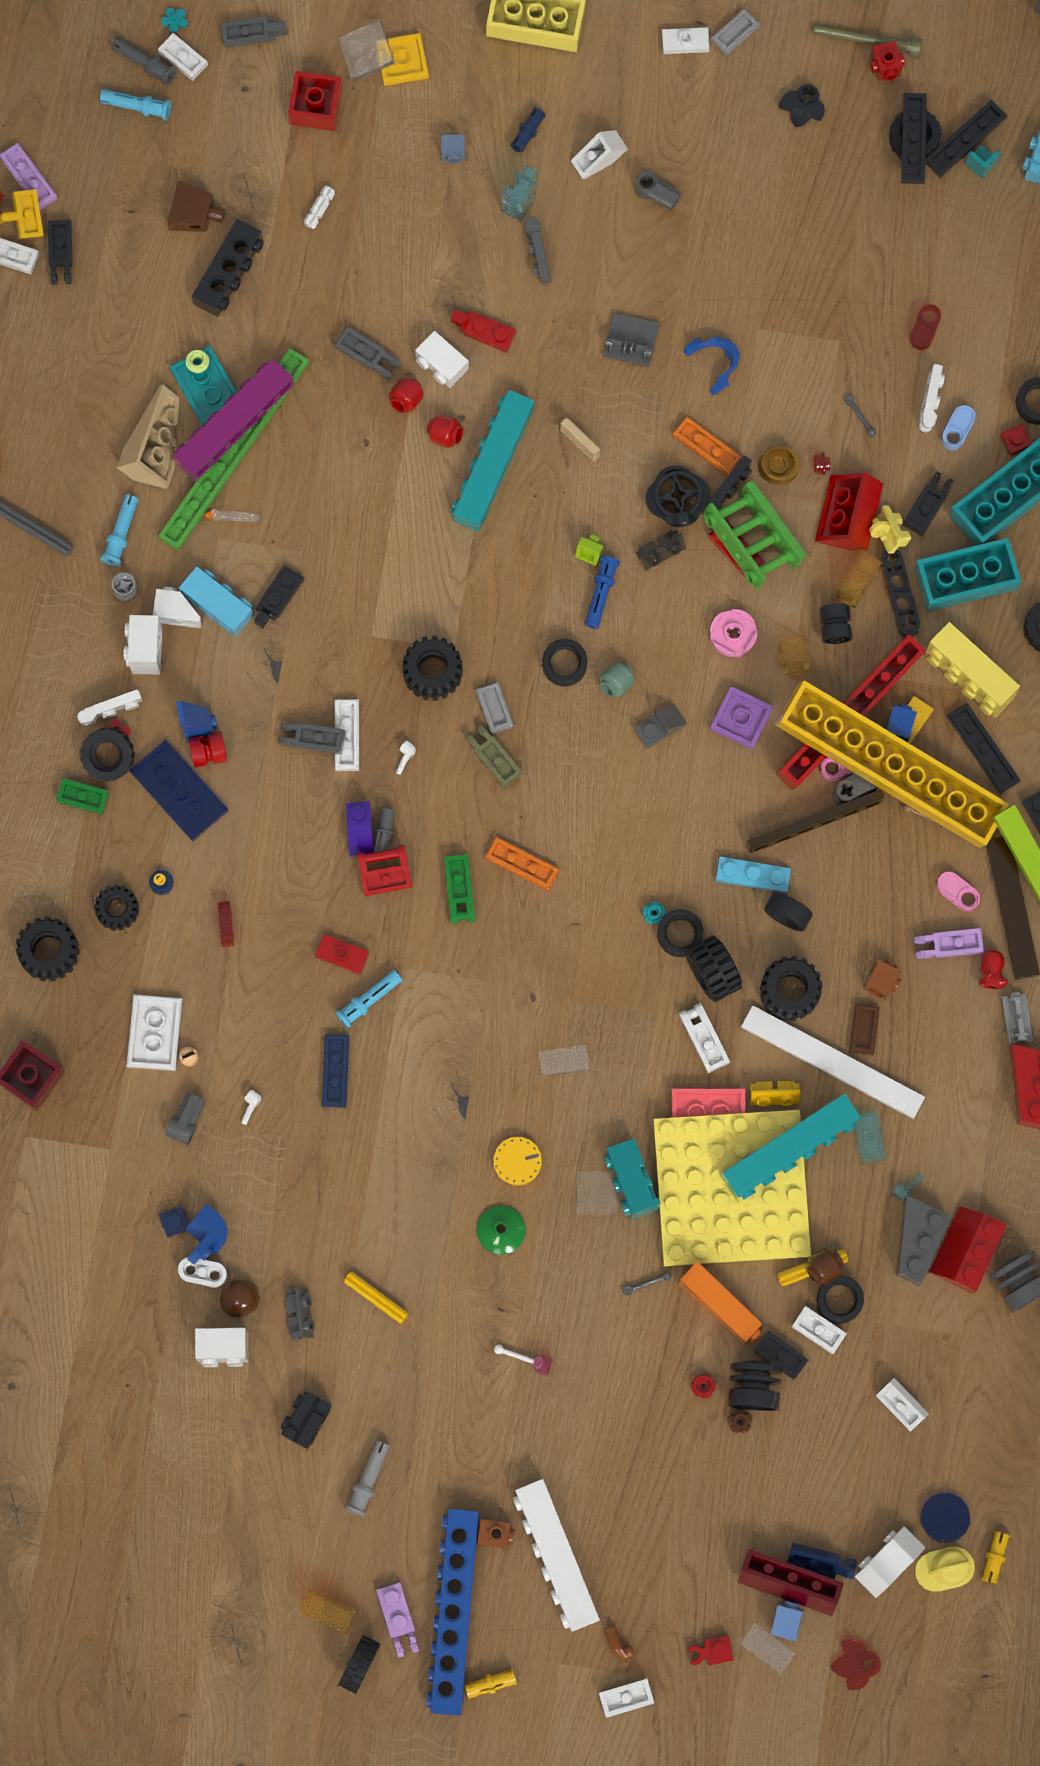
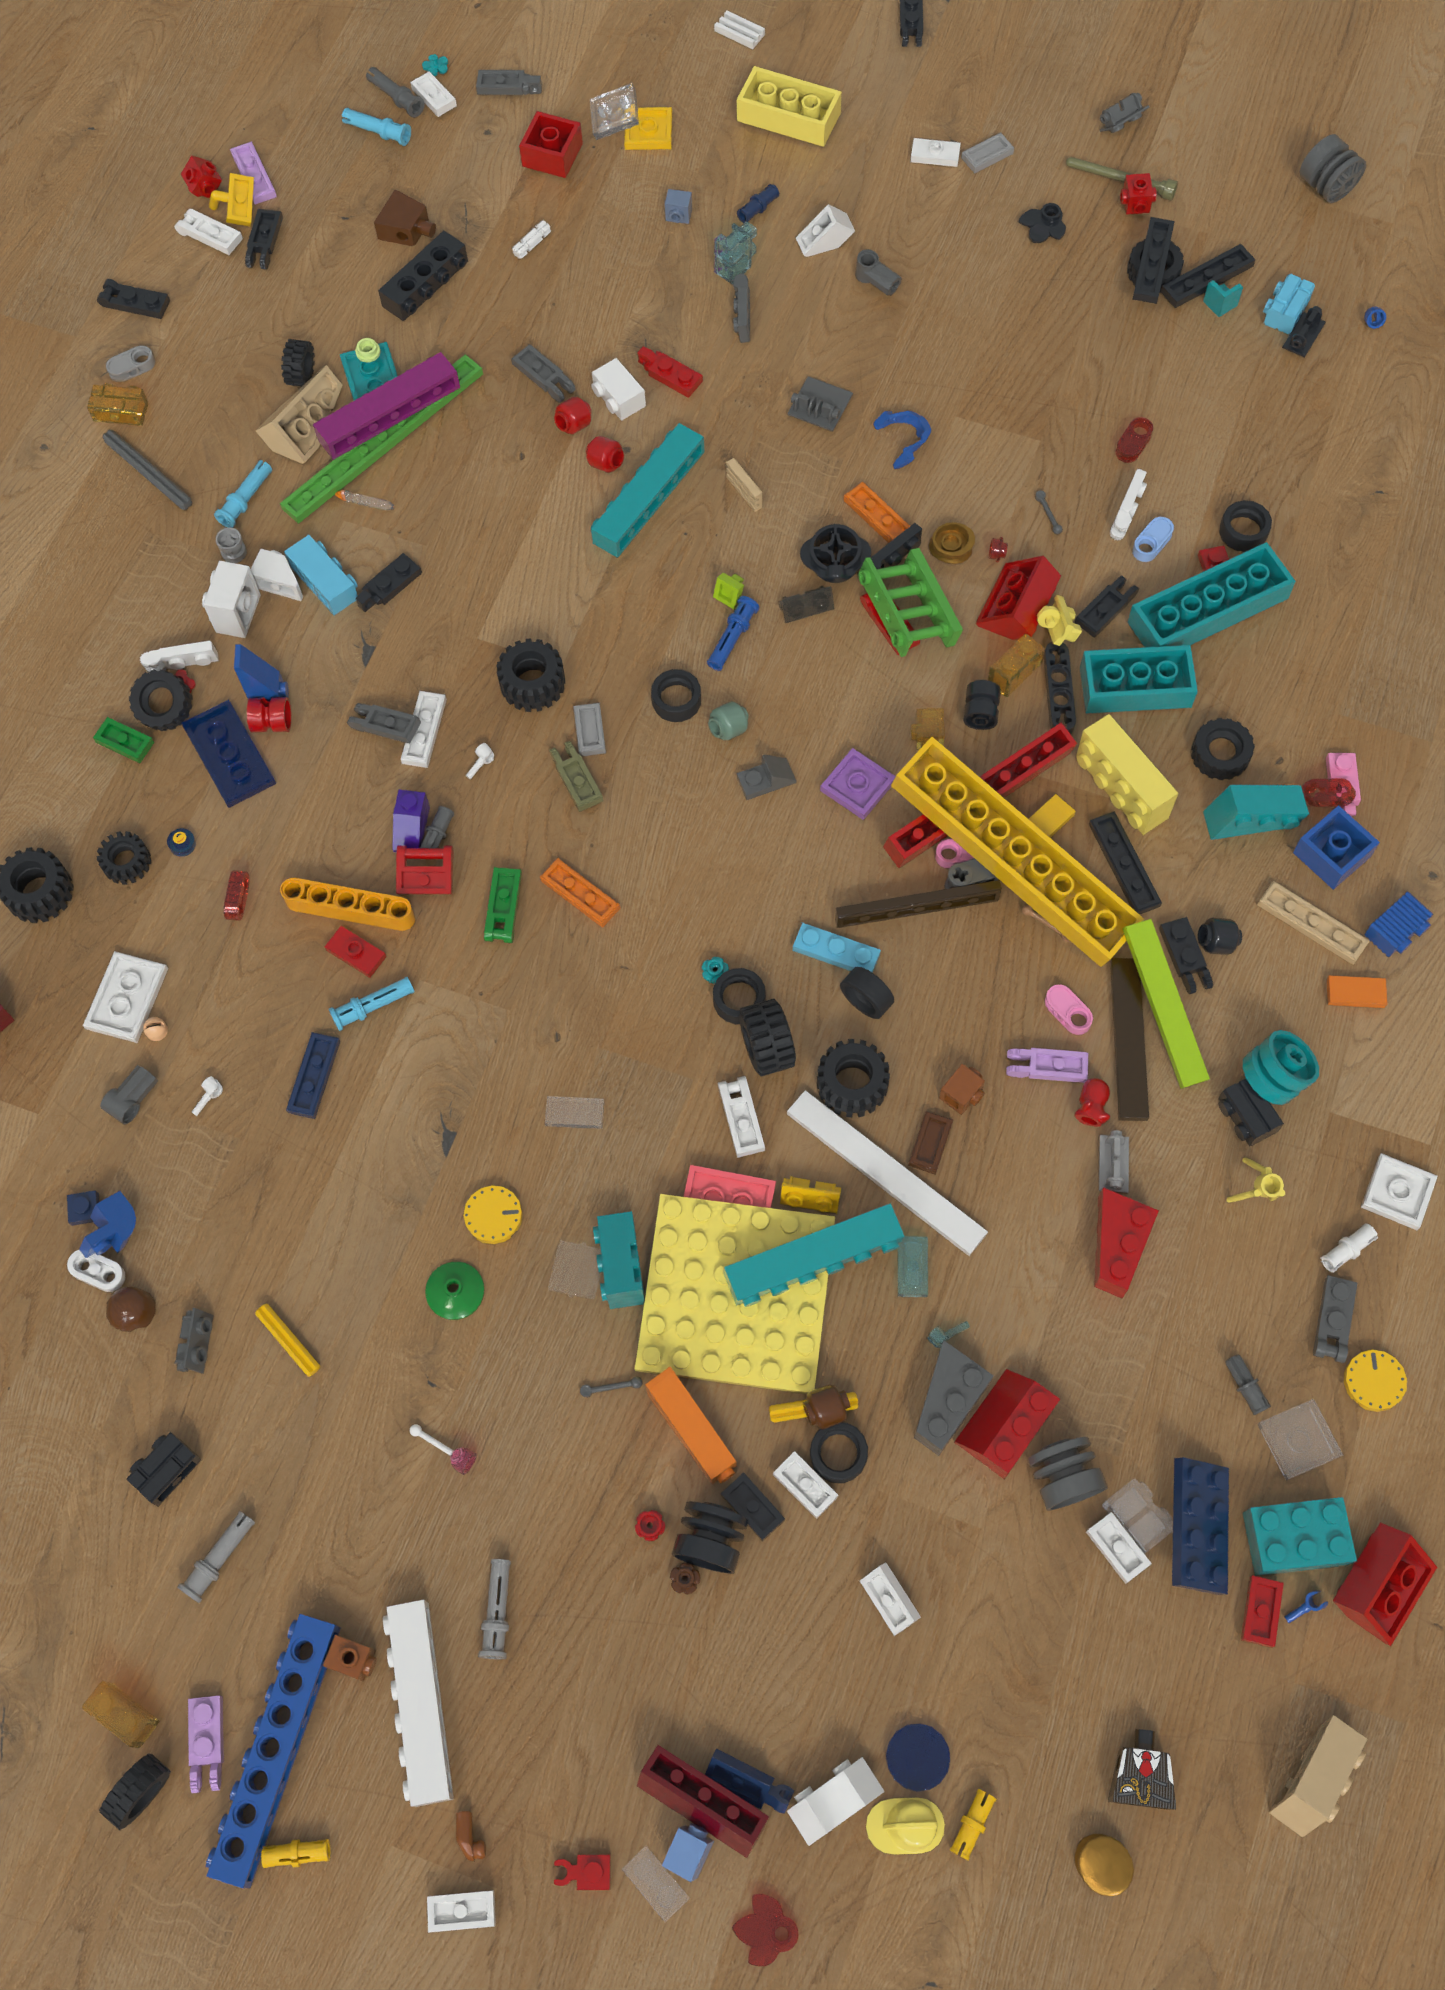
camera: 15 degrees right, 10 degrees down
(136, 387) = (297, 362): none -> black tyre
(221, 1346) = (87, 1358): white brick -> none
(315, 907) = (338, 895): none -> light orange beam
(600, 1486) = (498, 1627): none -> light grey pin
(729, 620) = (867, 711): bright pink plate -> none
(901, 721) = (1038, 810): blue brick -> none

